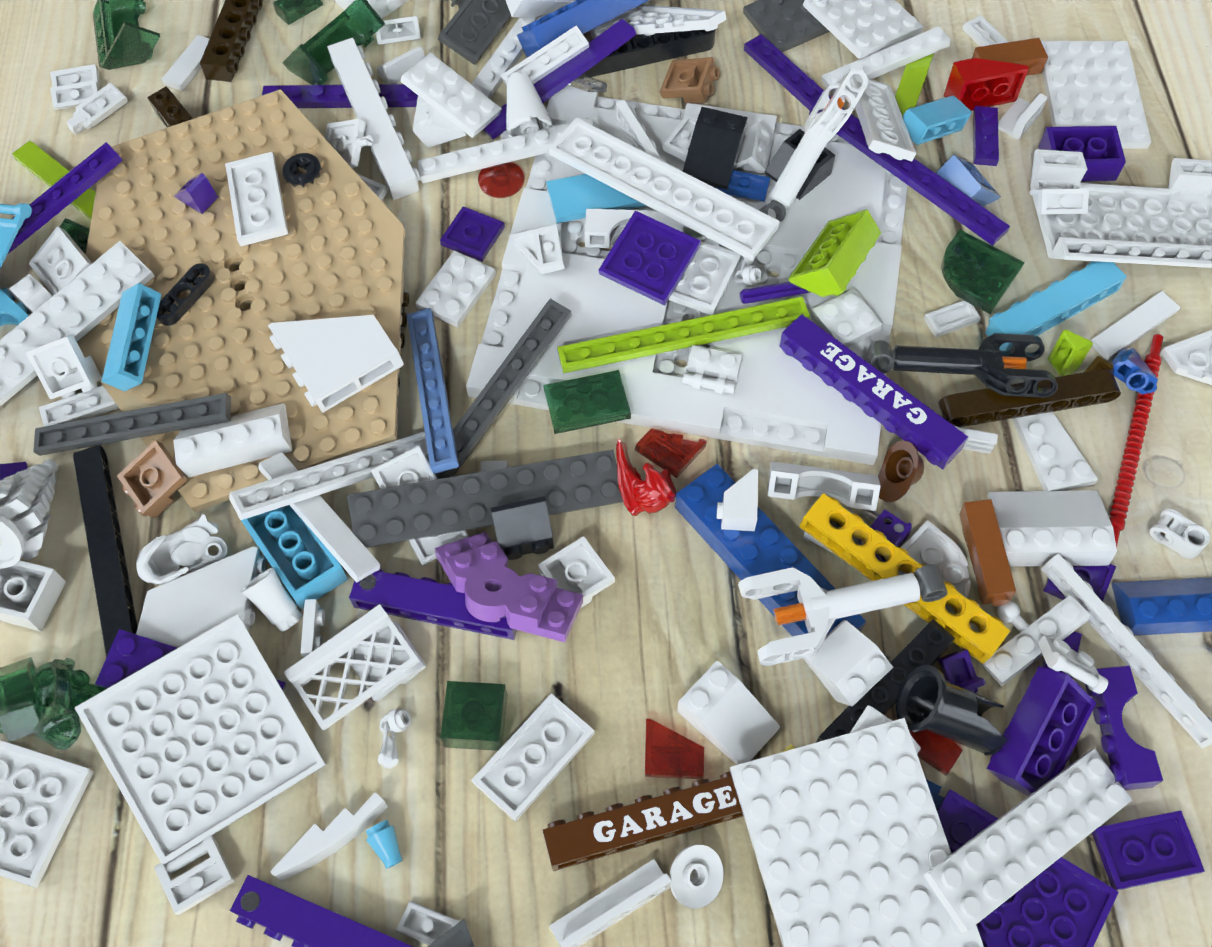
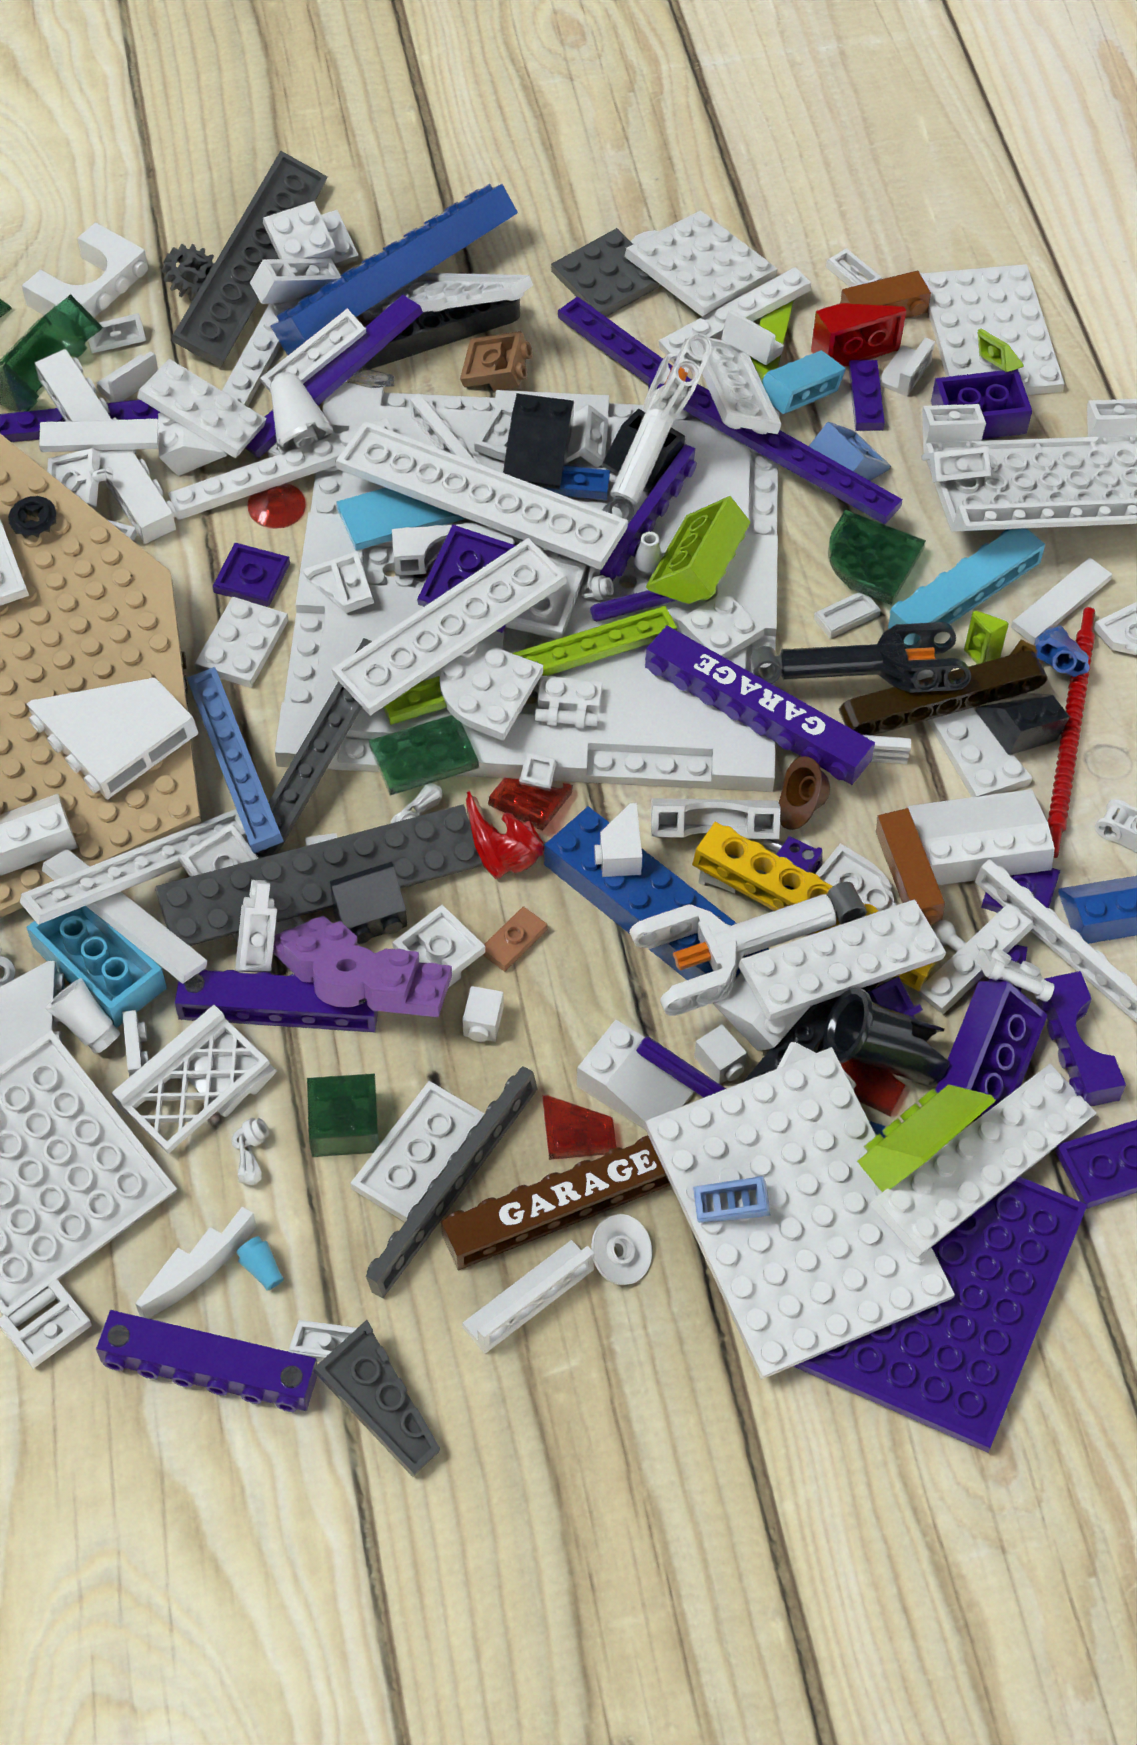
camera: 10 degrees left, 5 degrees down
(367, 109) = (99, 435): none -> white tile
(425, 542) = (256, 930): none -> white hinge
(550, 797) = (446, 1189): none -> dark grey plate
(585, 439) = (427, 798): none -> white piece
(605, 638) = (483, 1014): none -> white brick
(620, 296) = (448, 626): none -> white plate
(641, 571) = (514, 938): none -> nougat plate
(645, 349) = (488, 688): none -> white plate
(679, 427) = (538, 771): none -> white tile
(770, 716) = (678, 1067): none -> dark purple axle
(771, 855) = (730, 1187): none -> medium blue slope
(793, 250) = (648, 553): none -> white cone
(802, 211) = (653, 507): none -> dark purple plate
(804, 702) = (720, 1055): none -> white brick
(897, 80) = (751, 338): none -> white panel
(920, 634) = (841, 959): none -> white plate
(979, 813) = (921, 1133): none -> lime slope
(1096, 428) = (1024, 721): none -> black slope
(1100, 110) = (997, 352): none -> lime slope

